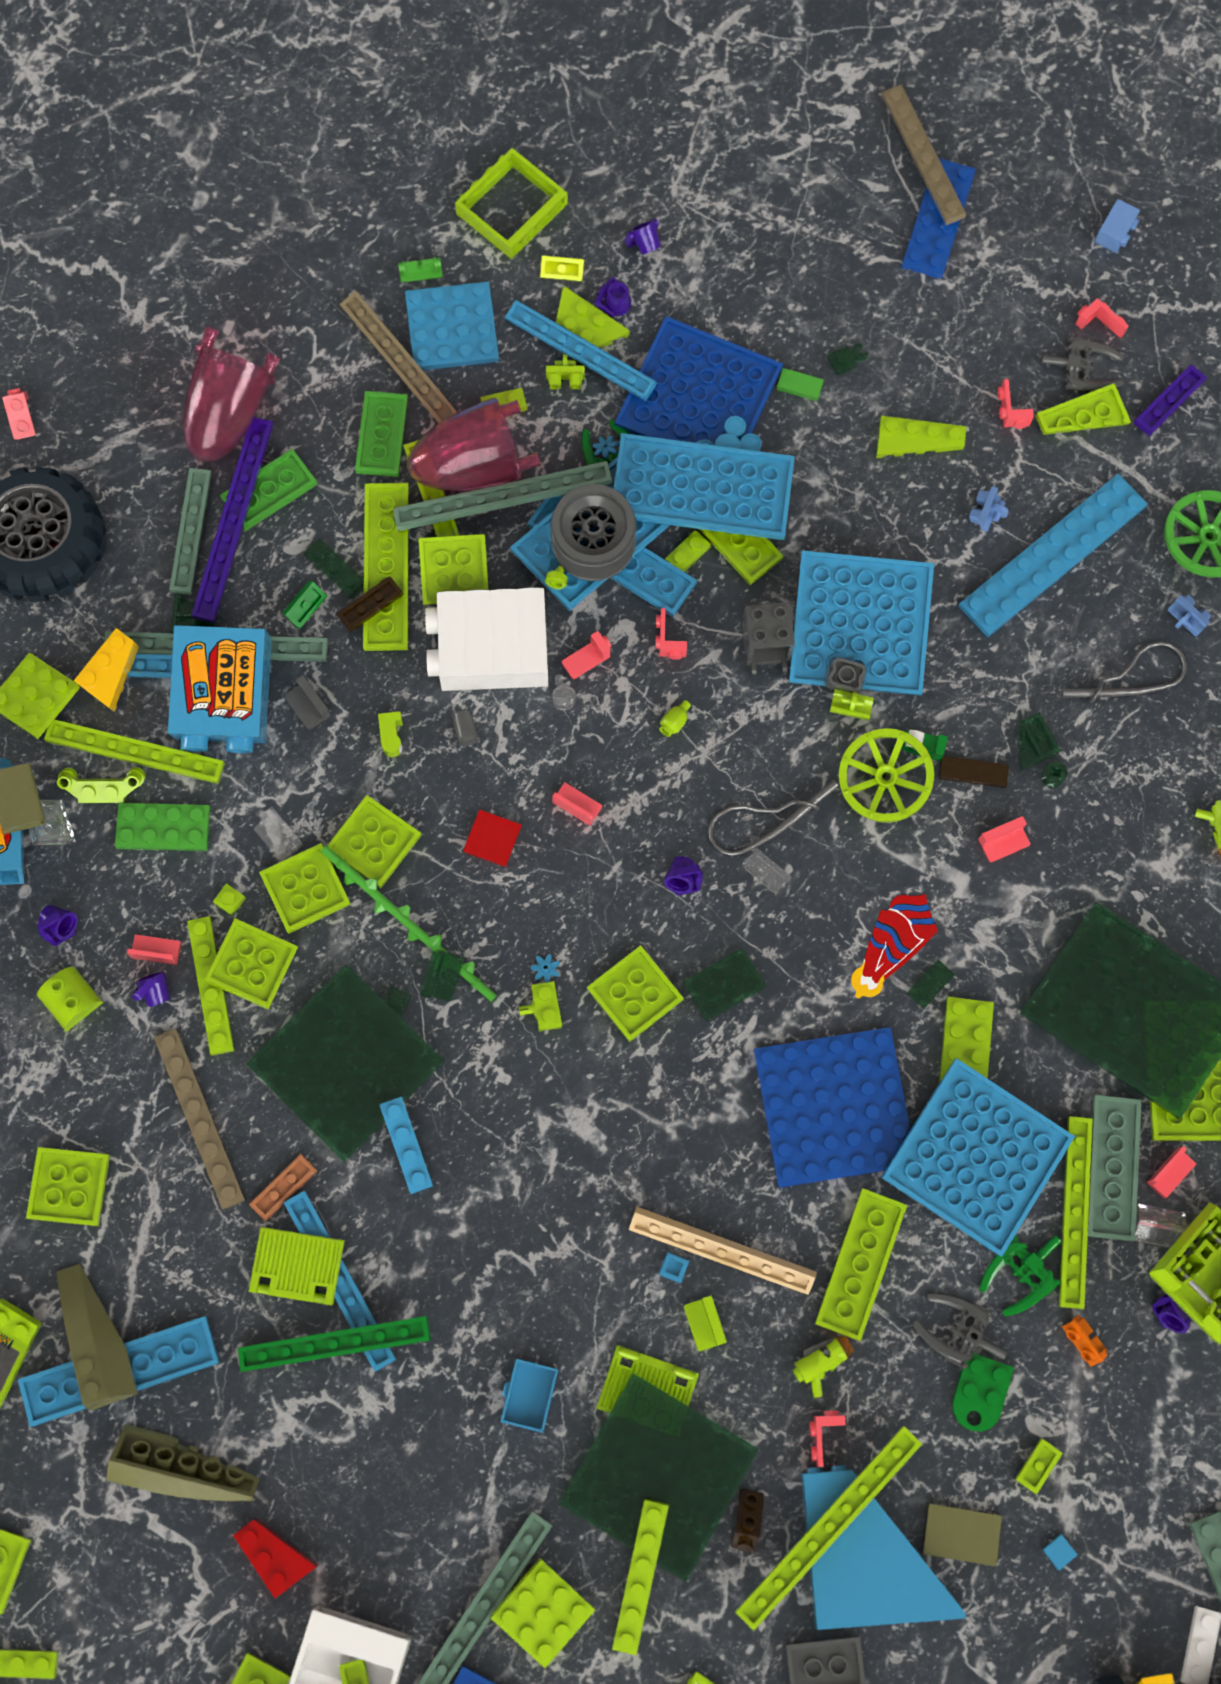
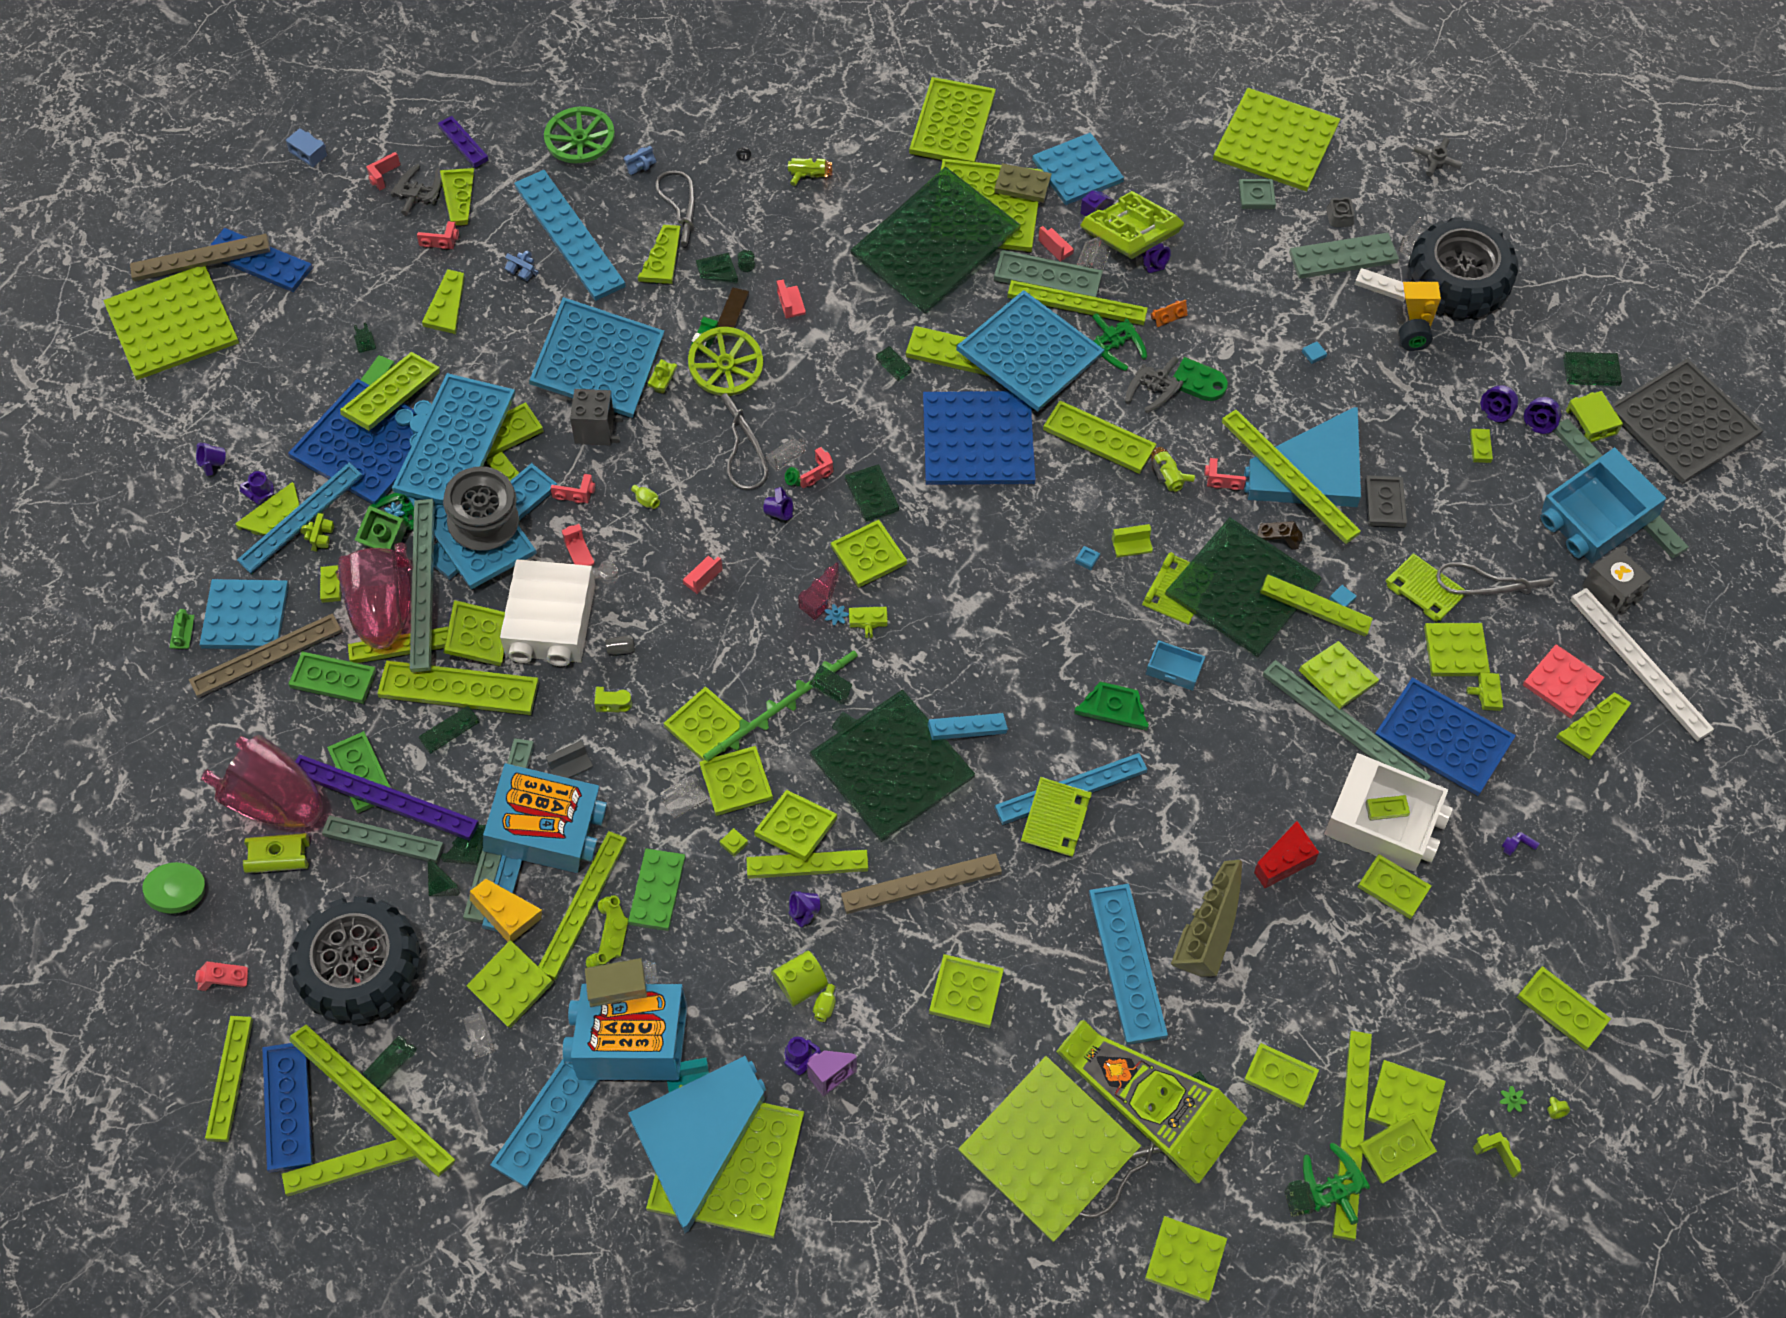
camera: 80 degrees left, 15 degrees down
(38, 1030) = (824, 1004): none -> lime plant
(57, 921) = (730, 978): dark purple piece -> none
(94, 1344) = (1102, 975): olive wedge -> none
(110, 341) = (173, 887): none -> bright green piece
(147, 599) = (439, 883): none -> clear green slope
(155, 949) = (768, 904): coral panel -> none
(159, 415) = (262, 851): none -> lime piece
(283, 1187) = (989, 825): nougat tile -> none
(304, 604) = (474, 750): green plate -> none
(334, 1344) = (1123, 794): green plate -> none
(370, 604) = (492, 700): dark brown tile -> none
(461, 1322) = (1114, 705): none -> green wing
(492, 838) = (719, 638): red tile -> none
(534, 225) = (126, 529): lime window -> none
(556, 578) = (508, 550): lime tile -> none
(562, 268) = (215, 525): neon yellow slope -> none
(565, 944) = (819, 594): none -> clear pink slope
(570, 438) = (381, 529): none -> bright green brick
(665, 1613) = (1343, 596): none -> dark azure tile
(722, 1250) = (1078, 523): tan plate -> none
(732, 886) = (792, 476): none -> green plate
(762, 919) = (822, 471): none -> coral bracket
(767, 402) = (389, 391): none -> lime plate
(830, 149) = (170, 322): none -> lime plate
(845, 675) = (638, 373): dark grey piece -> none
(894, 942) = (853, 379): red sticker -> none
(961, 1534) = (1298, 407): olive tile -> none
(1033, 672) = (662, 257): none -> lime wing
(1038, 1466) = (1254, 353): lime plate -> none

